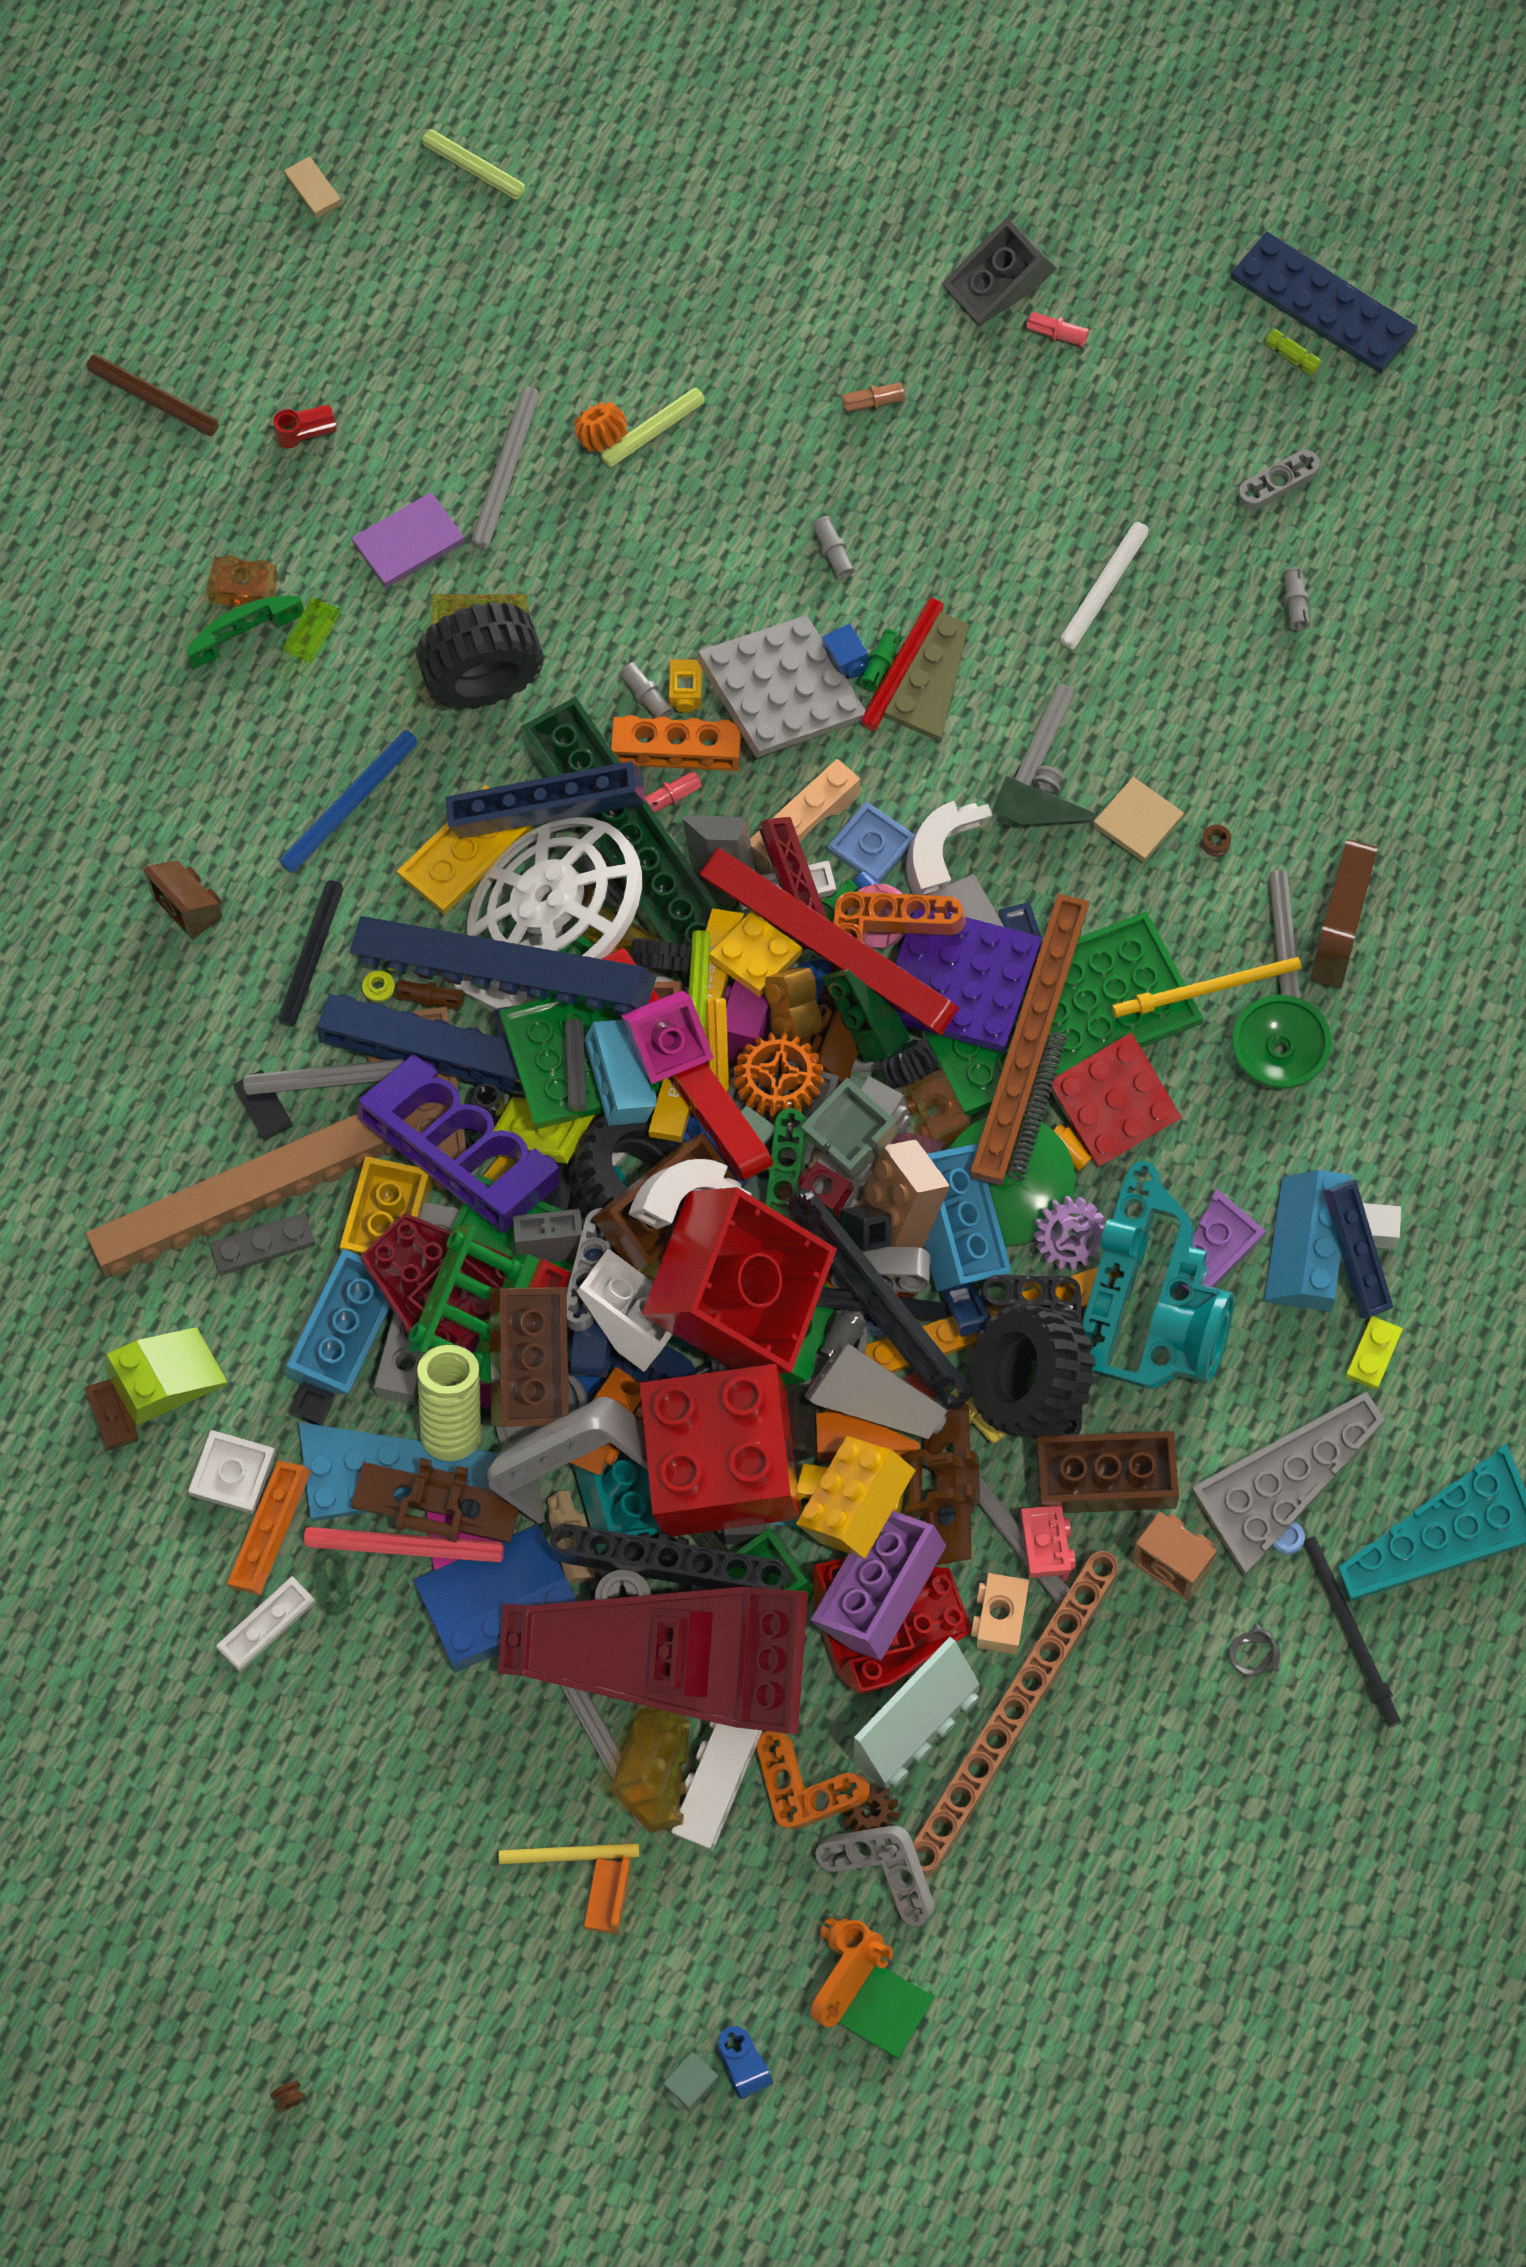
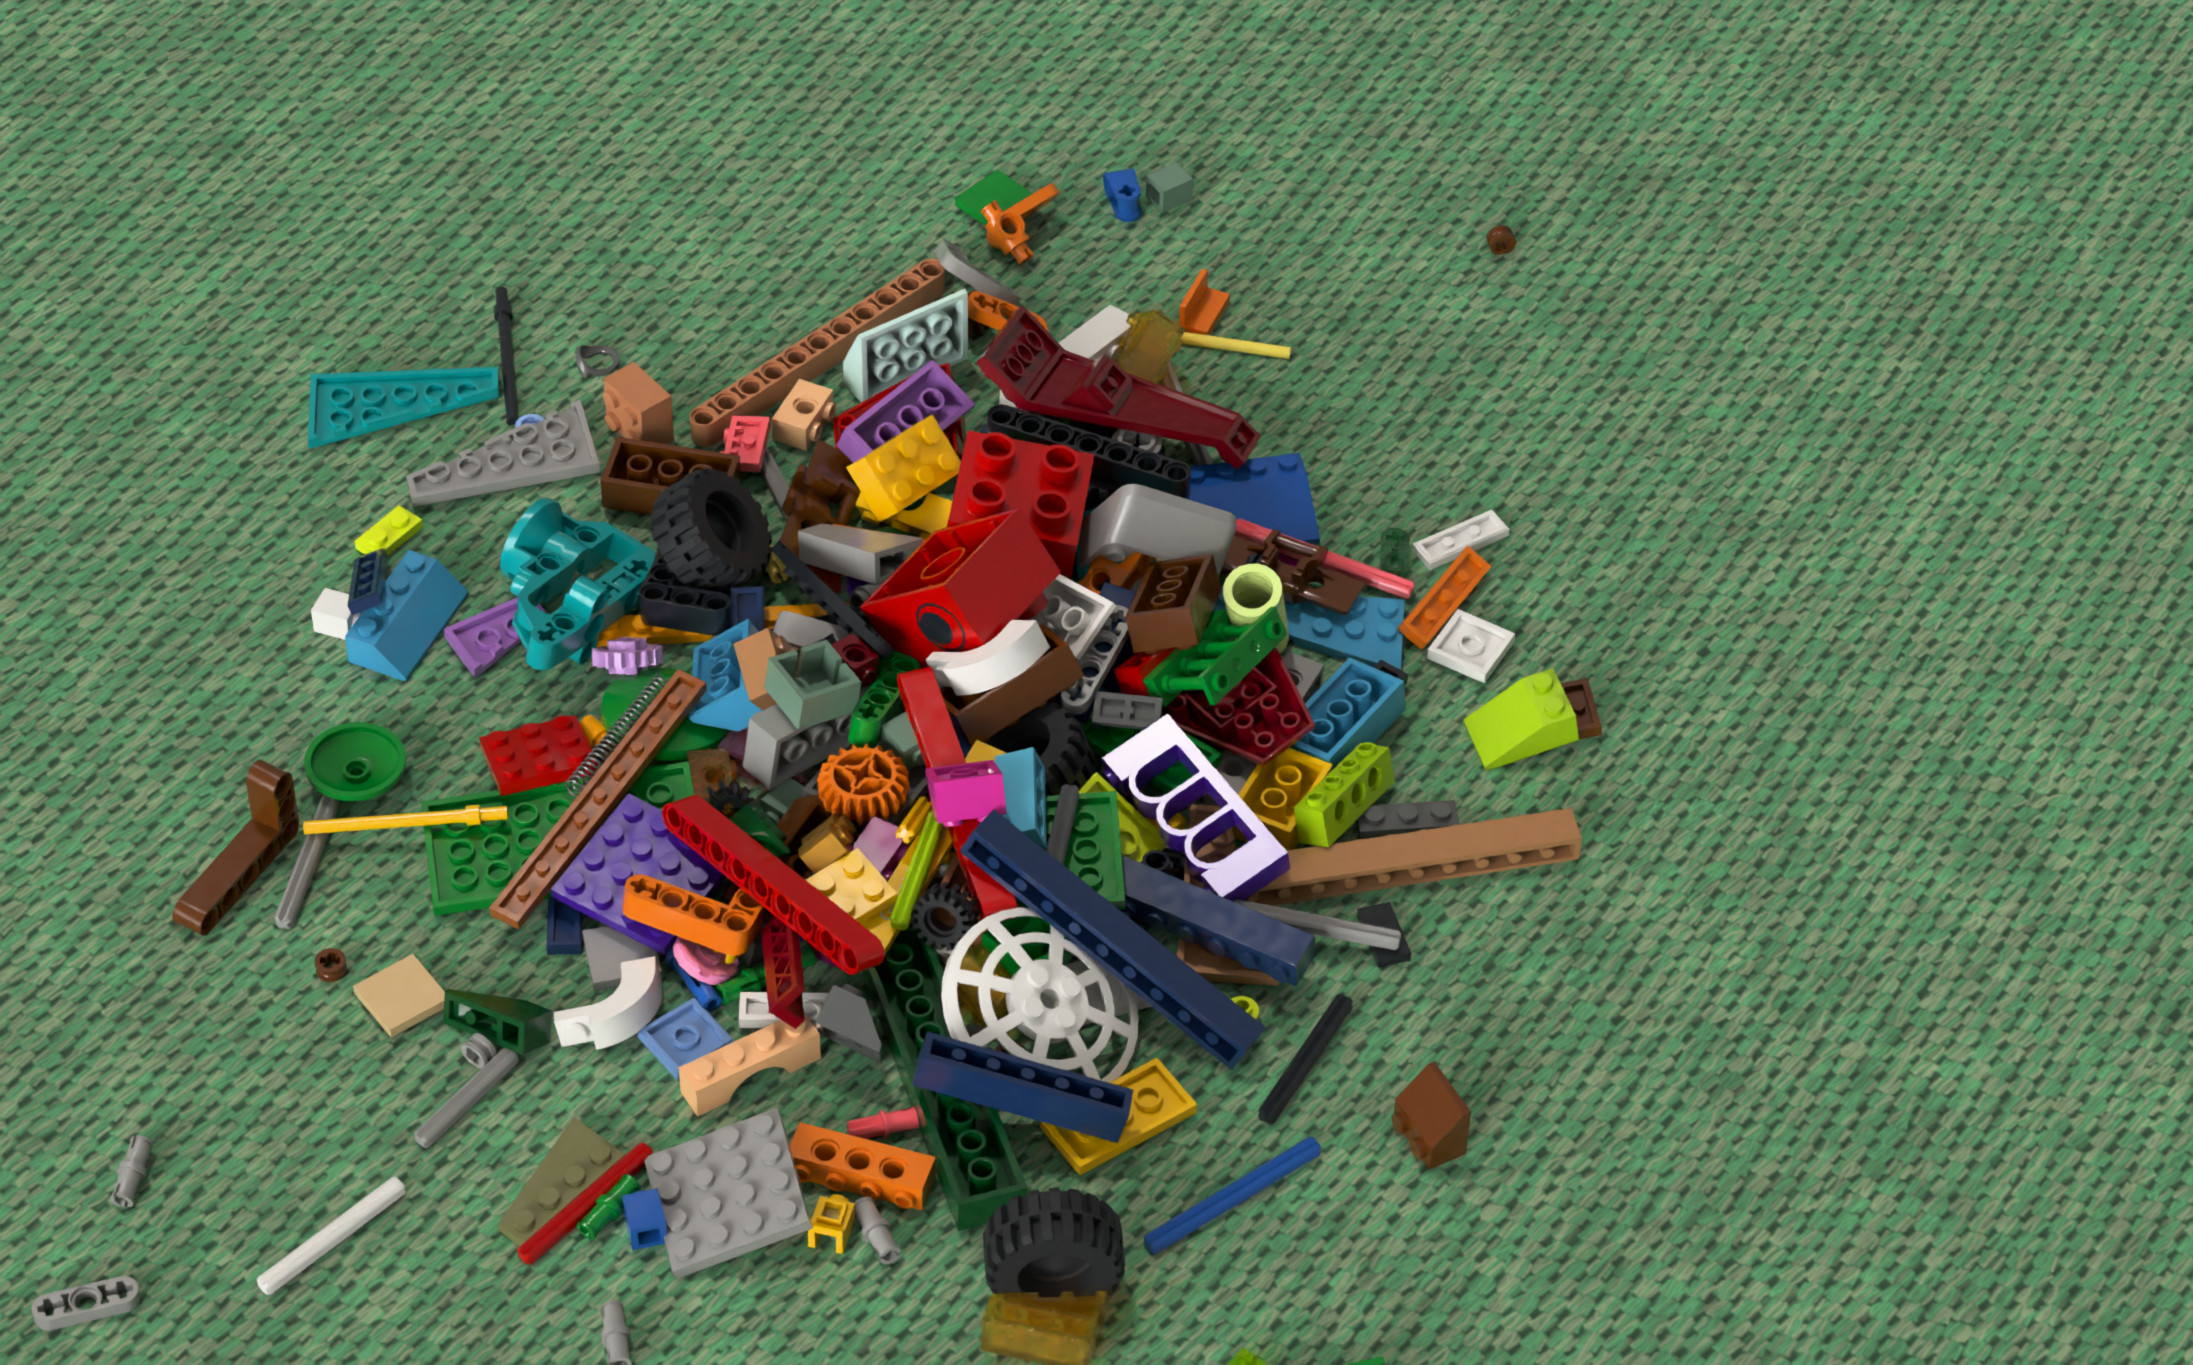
camera: 170 degrees left, 20 degrees down
(323, 1224) = (1344, 795): none -> lime brick

